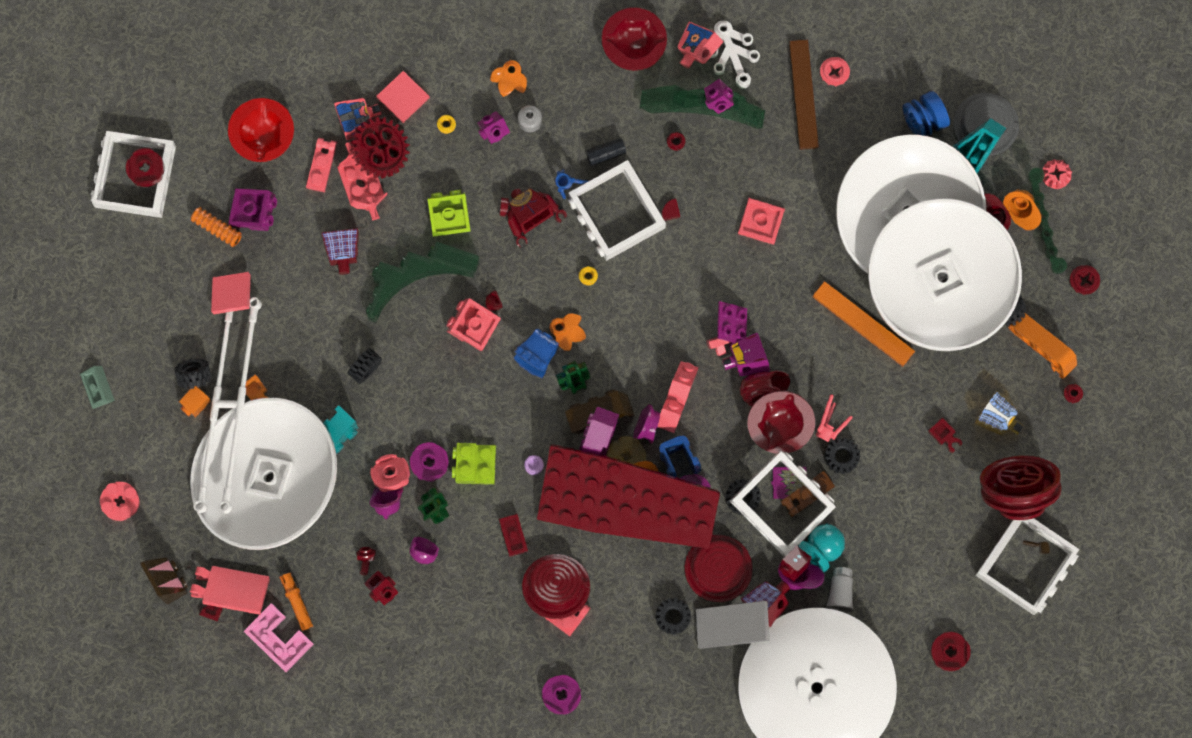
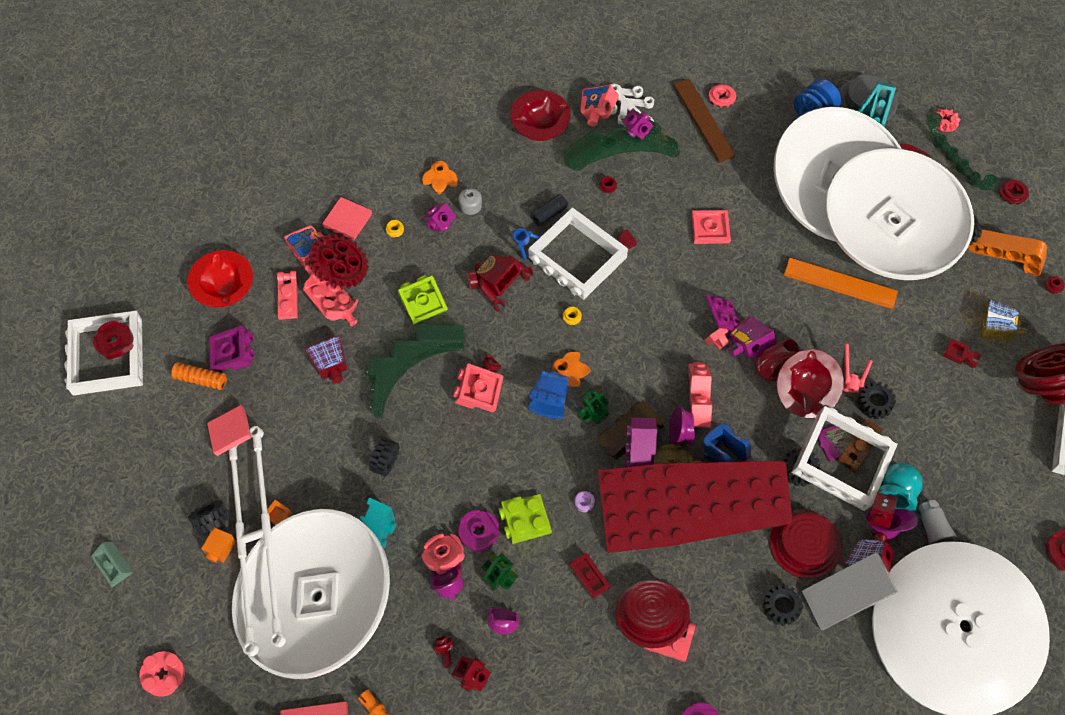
camera: 15 degrees left, 15 degrees down
(1023, 209) = (937, 148): orange piece -> none

